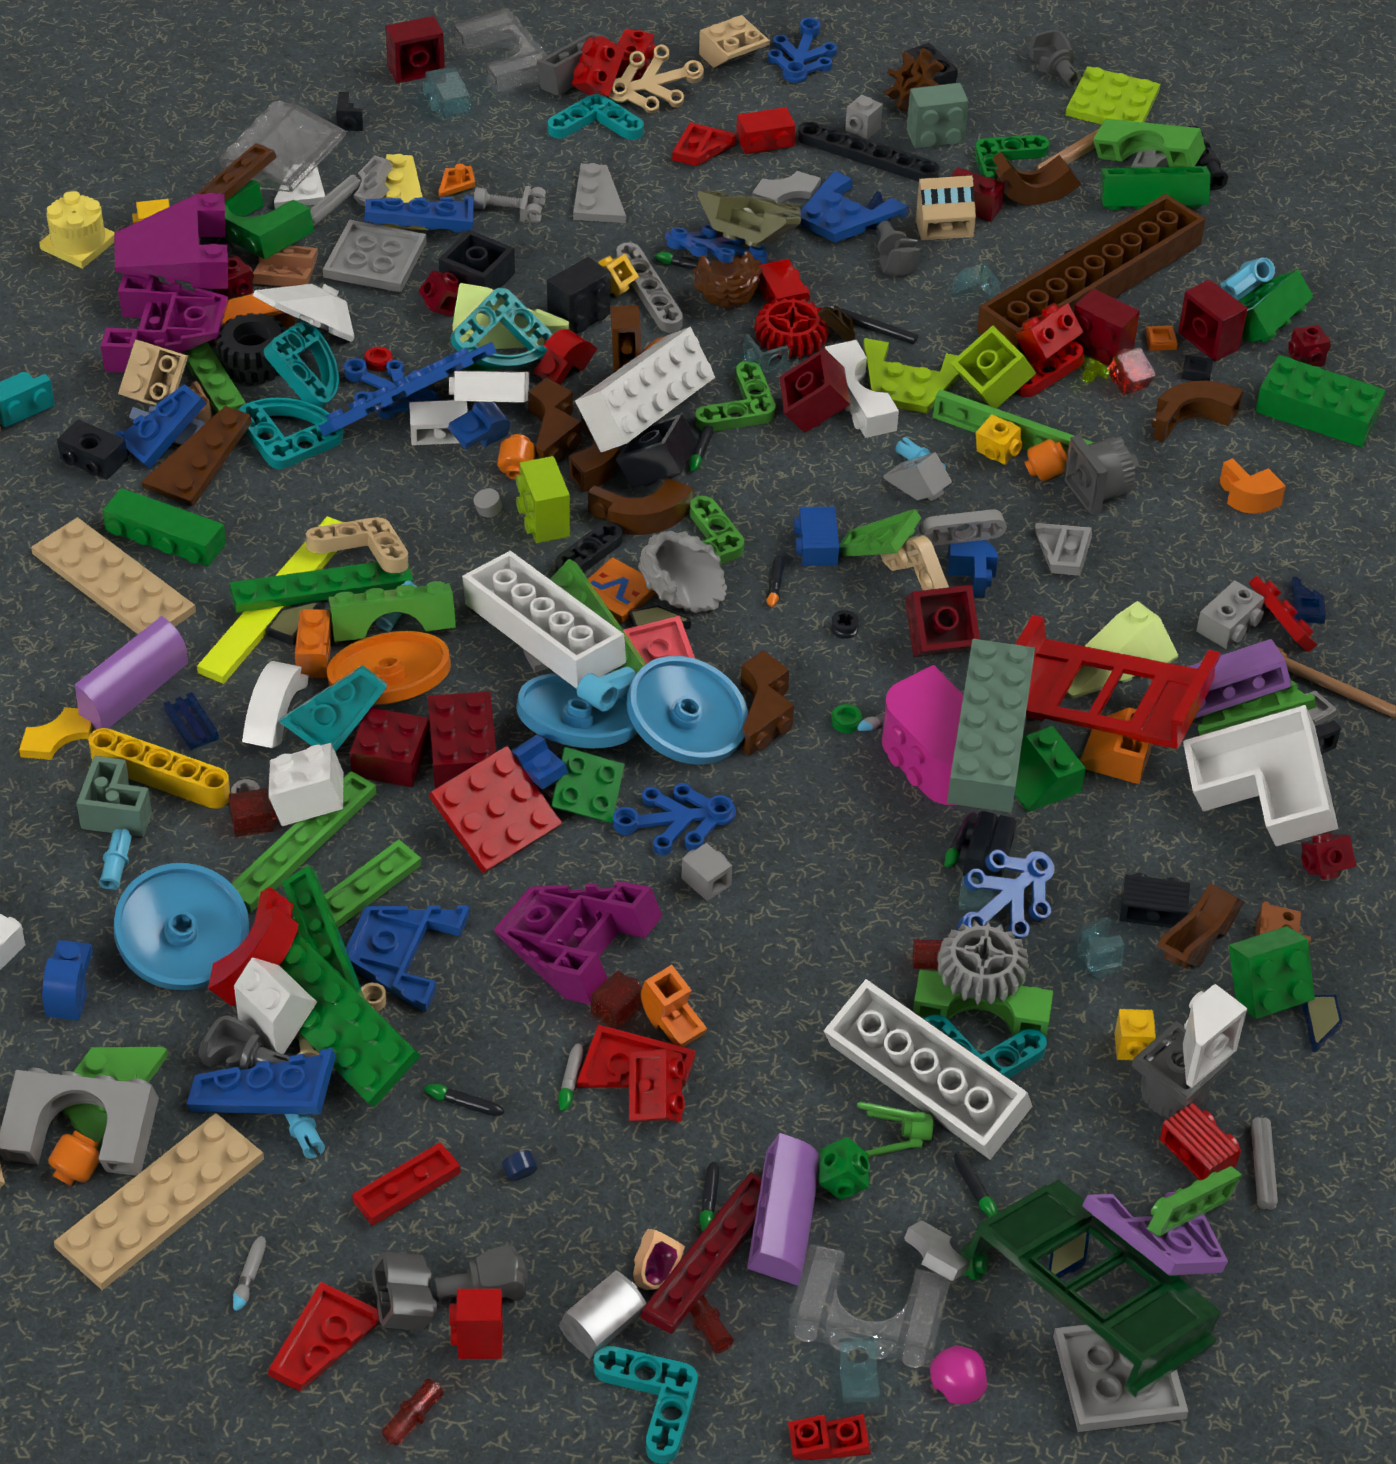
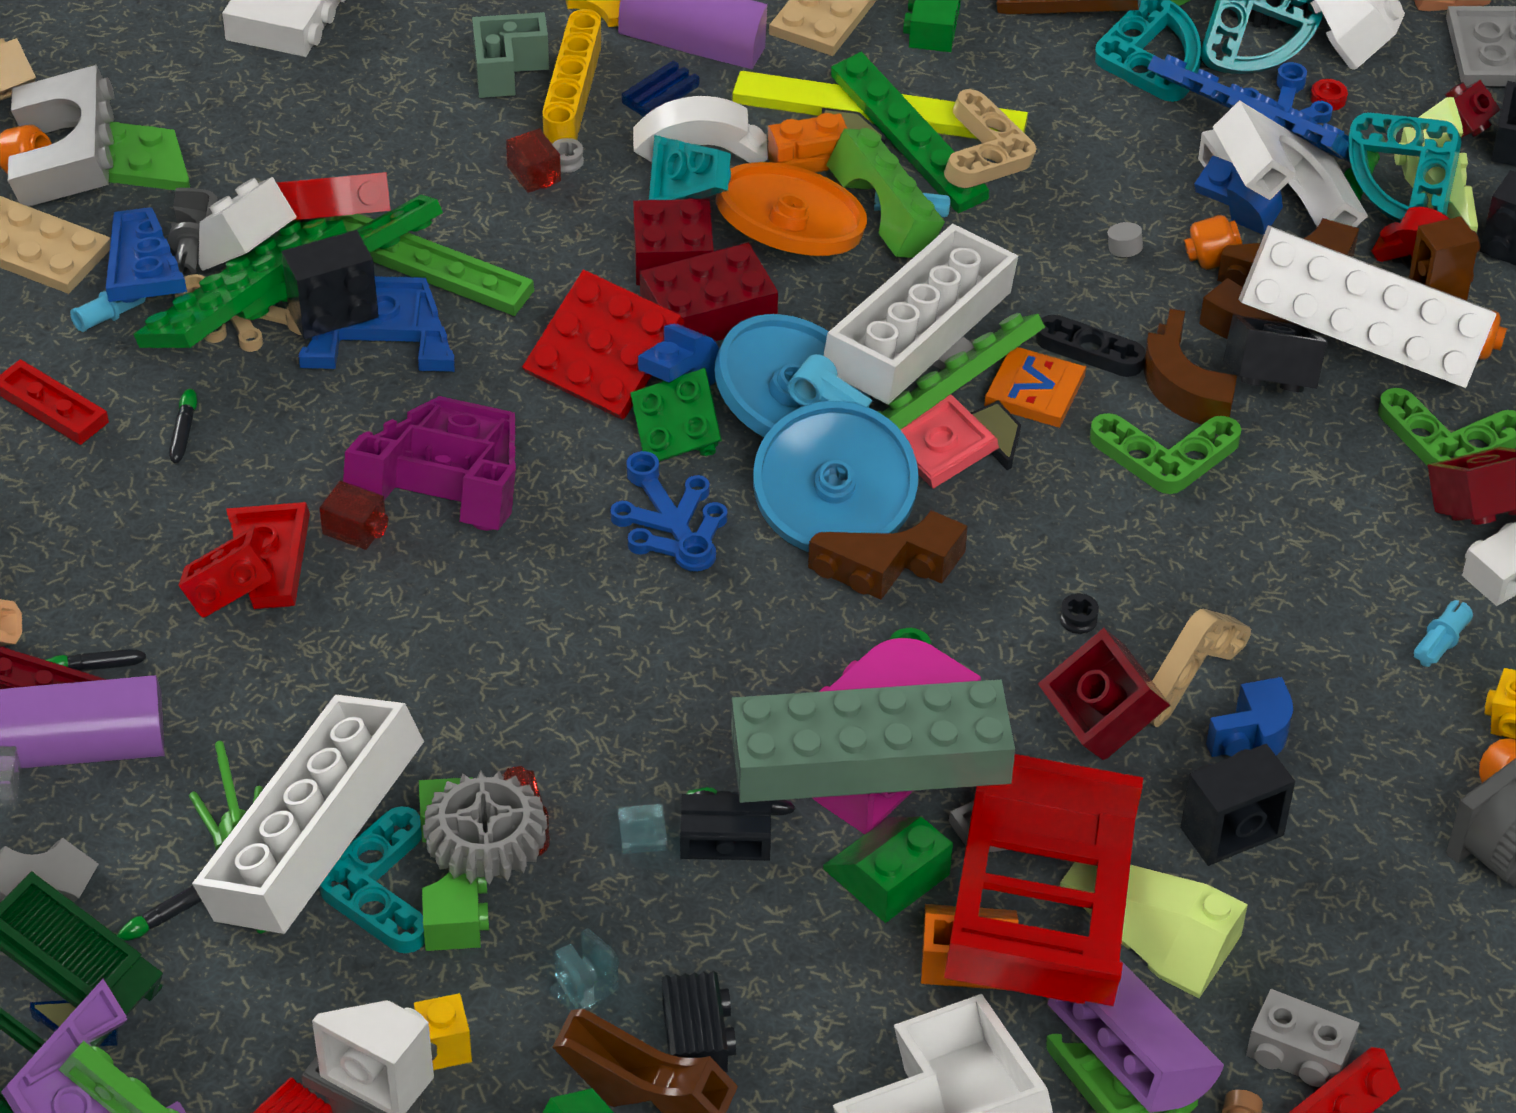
camera: 75 degrees right, 0 degrees up
(64, 980) = (240, 77): blue brick -> none
(115, 859) = (435, 82): medium azure axle -> none
(178, 924) = (344, 131): dark azure dish -> none
(301, 843) = (515, 211): bright green plate -> none
(306, 784) = (575, 180): white brick -> none
(384, 951) = (330, 284): none -> black brick
(519, 1165) = (95, 487): dark blue piece -> none
(543, 499) = (1134, 272): lime brick -> none
(566, 1095) = (211, 507): light grey piece -> none
(667, 1008) = (353, 558): orange brick -> none
(683, 571) = (1067, 420): light grey hair -> none
(700, 449) = (1313, 411): black piece -> none
(706, 871) = (583, 555): light grey brick -> none
(775, 581) = (1128, 531): black piece -> none
(818, 536) = (1225, 551): blue brick -> none
(843, 1168) = (146, 780): green brick -> none
(880, 536) = (1236, 599): bright green wing -> none
(920, 477) = (1394, 637): light grey slope -> none
(973, 533) = (1286, 678): light grey beam -> none
(1012, 889) = (648, 858): plant -> none
(1051, 584) = (1237, 804): none -> black brick
(1064, 547) = (1346, 824): light grey wing -> none

